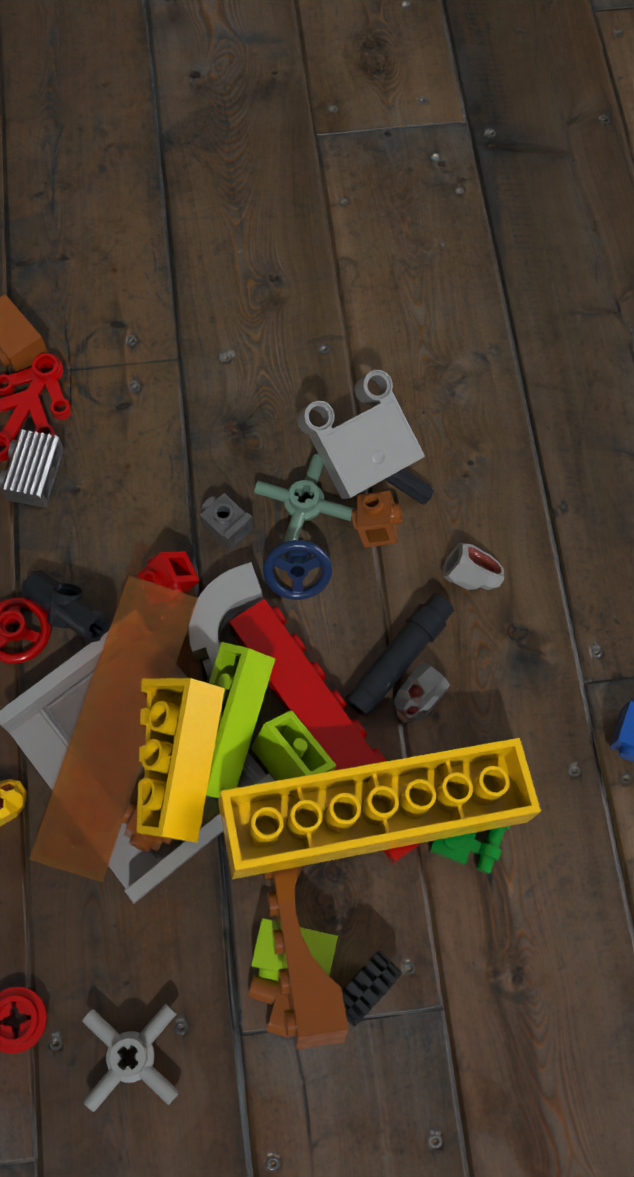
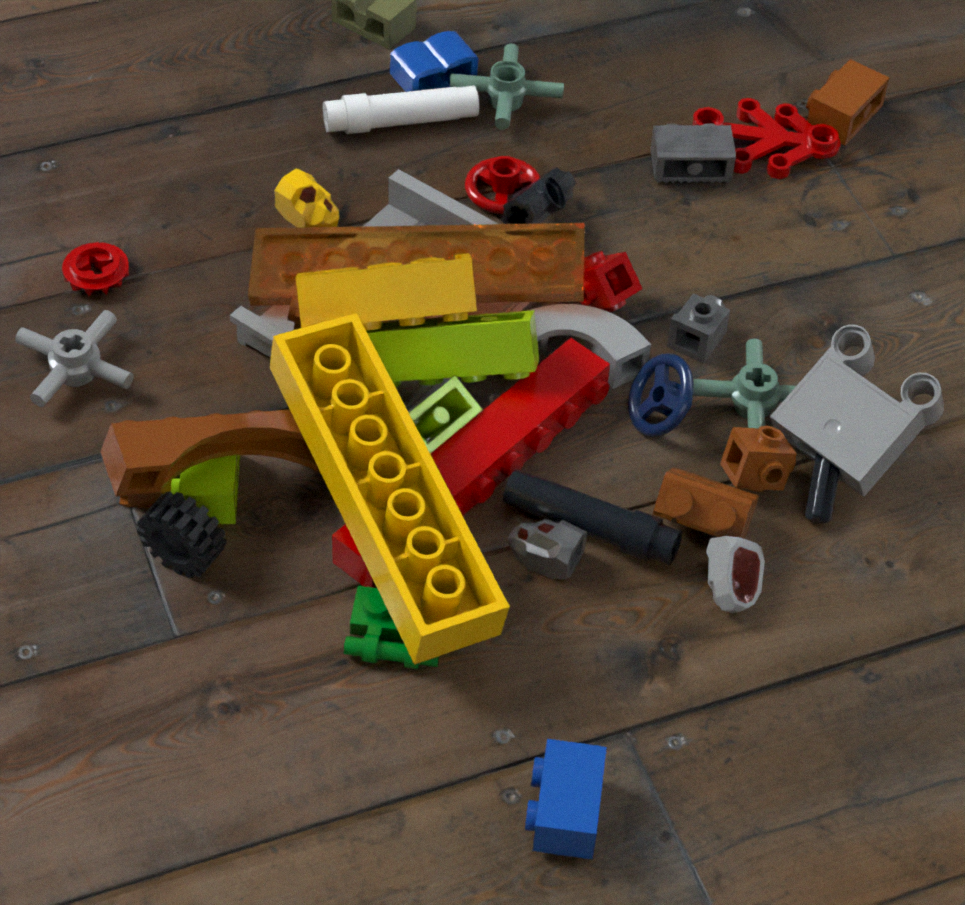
camera: 75 degrees right, 20 degrees down
(413, 569) = (705, 504): none -> dark orange brick

